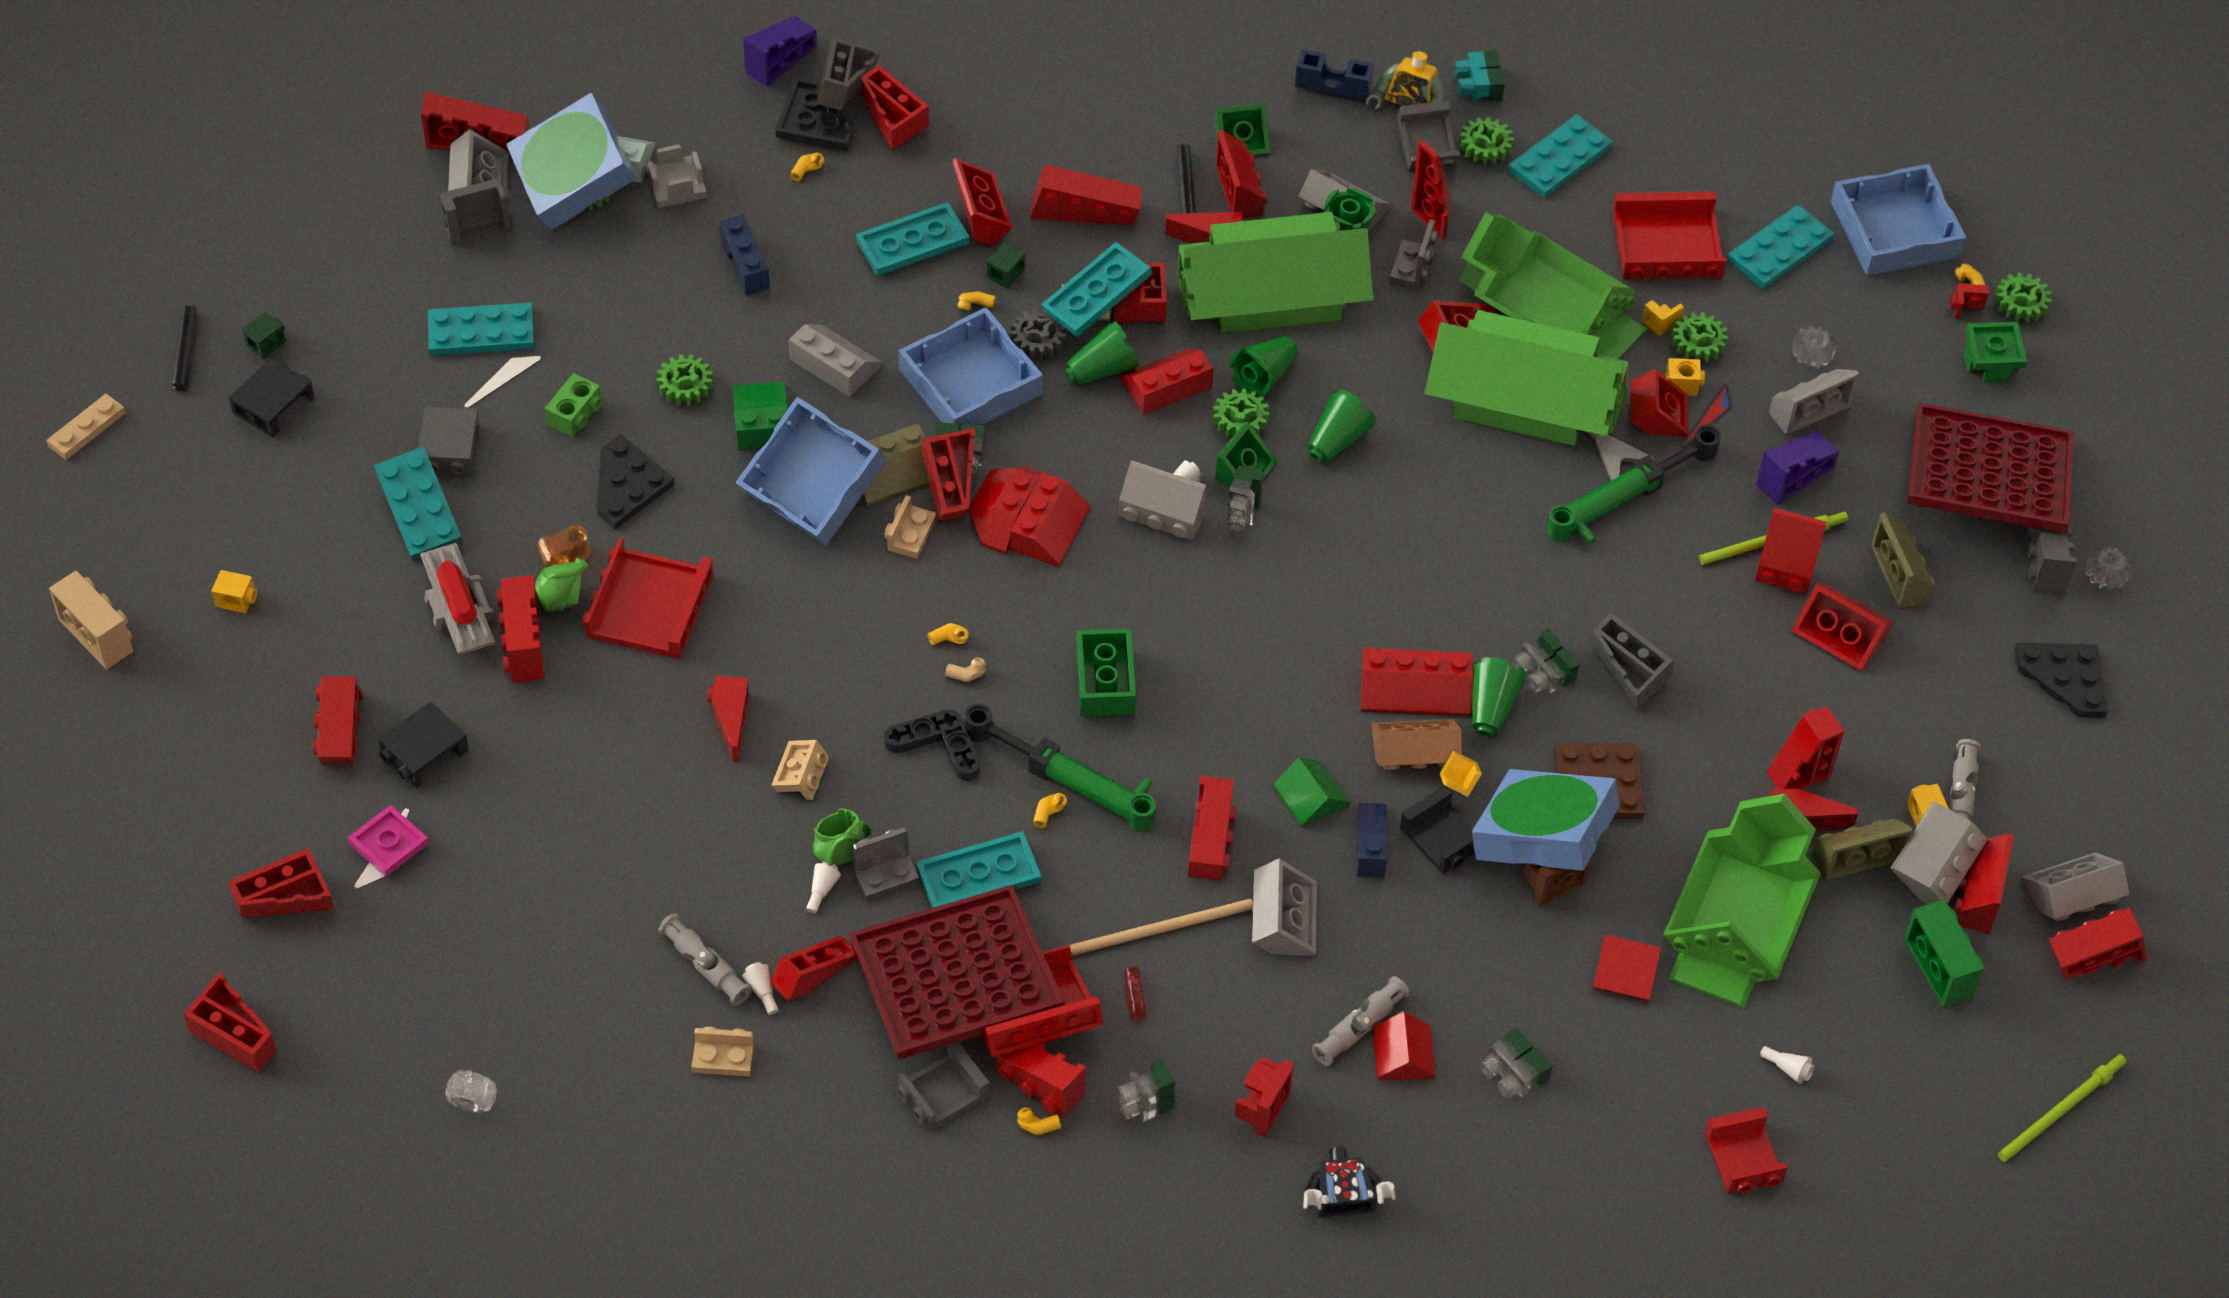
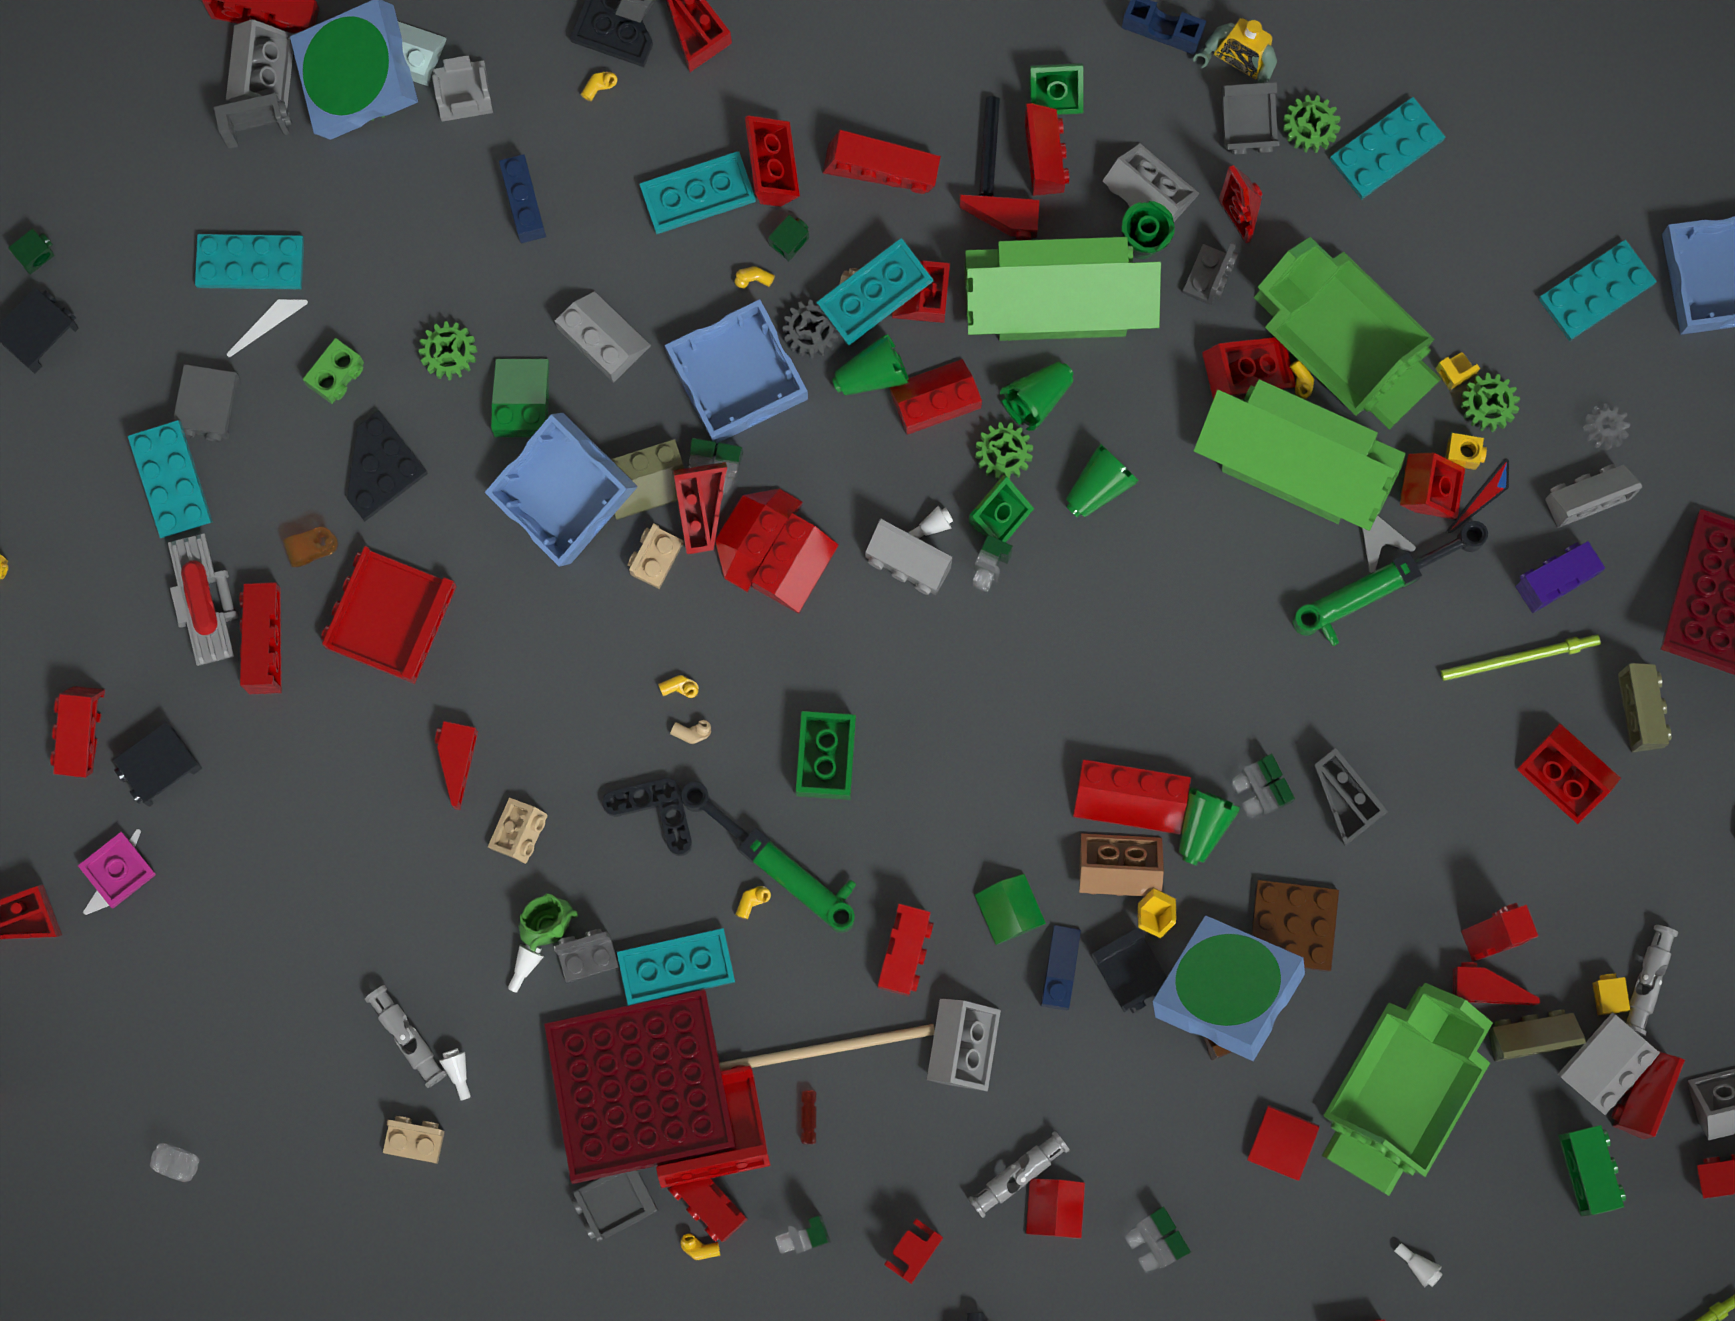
camera: 10 degrees right, 25 degrees up
(559, 586) = (300, 597): bright green helmet -> none
(810, 967) = (507, 1056): red slope -> none
(1483, 75) = (1323, 37): teal hips -> none
(1668, 235) = (1481, 268): red panel -> none
(1790, 551) = (1529, 693): red slope -> none

